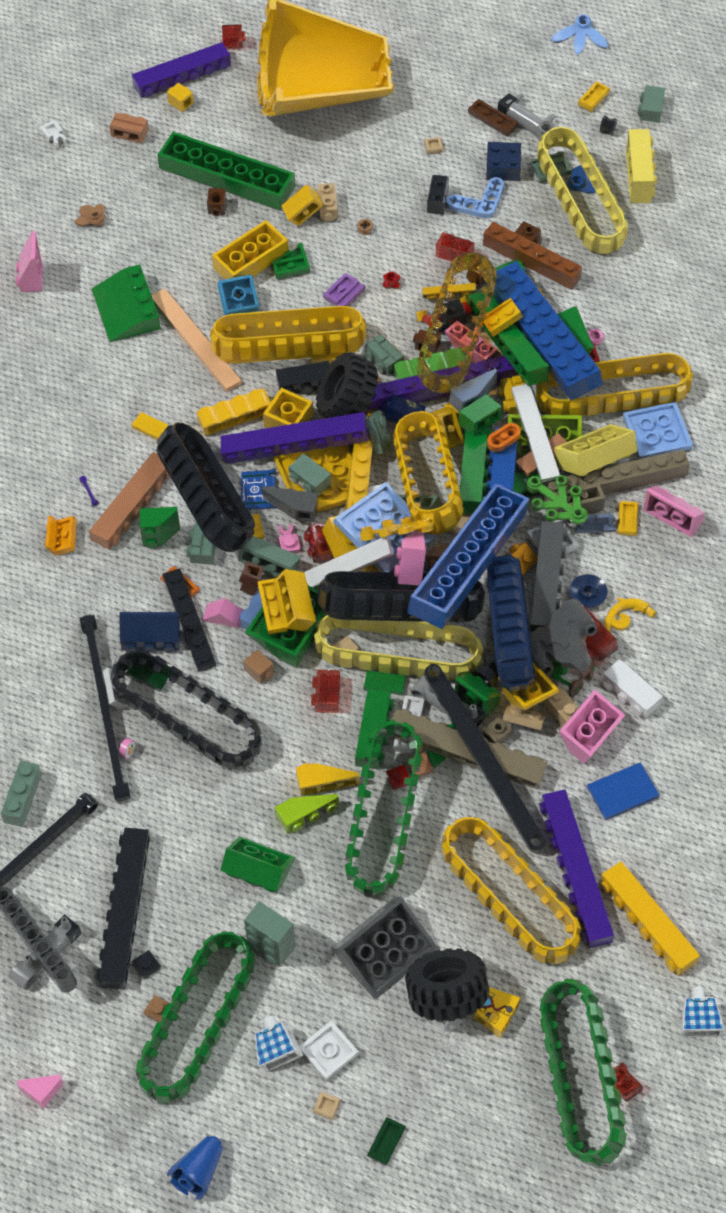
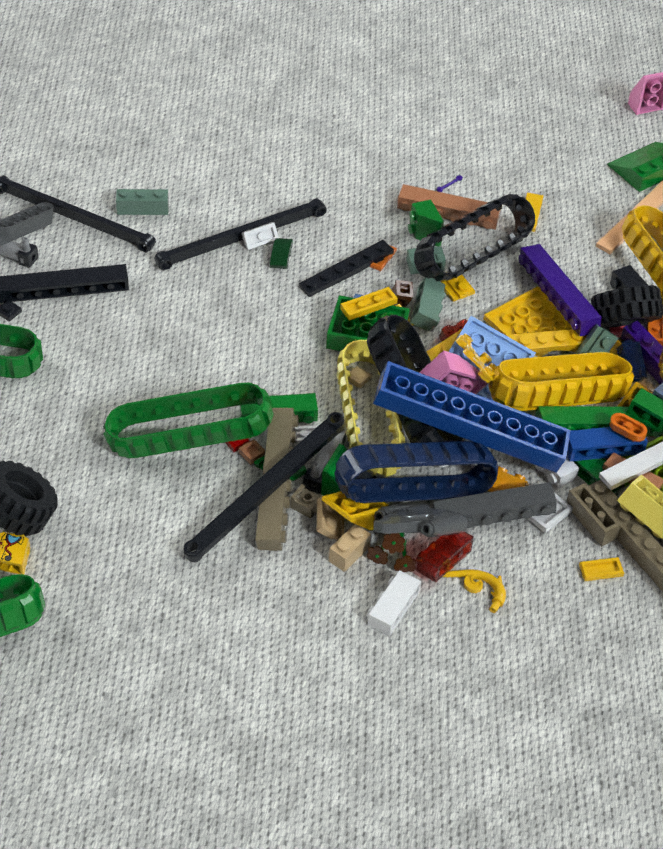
camera: 70 degrees right, 10 degrees down
(61, 535) = (395, 172): light orange bracket -> none
(127, 748) = (205, 255): bright pink tile -> none
(150, 631) = (319, 241): dark blue slope -> none
(192, 686) = (257, 227): black piece -> none
(223, 613) = (360, 286): bright pink slope -> none
(233, 412) = (574, 252): yellow brick -> none
(252, 488) = (501, 287): blue piece -> none
(256, 864) = (119, 357): green slope -> none
(259, 667) = (314, 320): medium nougat brick -> none
(270, 934) = (42, 368): sand green brick -> none
(287, 409) = (589, 279): yellow brick -> none
(288, 540) = (453, 316): bright pink plate -> none
(292, 811) = (176, 374): lime slope -> none
(294, 503) = (490, 305): dark grey slope -> none
(295, 600) = (365, 317): yellow brick -> none
(309, 475) = (524, 308): sand green brick -> none
(320, 778) = (212, 376): yellow slope -> none
(327, 691) = (306, 371): clear red brick -> none
(351, 561) = (435, 342): white tile -> none
(384, 946) = (60, 458): dark grey slope -> none
(385, 682) = (331, 404): green tile -> none
(499, 910) = (107, 594): yellow piece -> none
(558, 502) = (573, 510): bright green plant -> none
(577, 869) = (174, 591): dark purple brick -> none
(590, 584) = (495, 540): dark blue dish -> none
(590, 726) = (333, 569): bright pink slope -> none
(597, 523) = (581, 540): sand blue hinge -> none
(622, 791) = (276, 618): blue tile -> none
(649, 918) = (134, 661): yellow brick -> none
(673, 510) = (627, 601): bright pink slope -> none
(701, 1016) = (36, 723): torso -> none

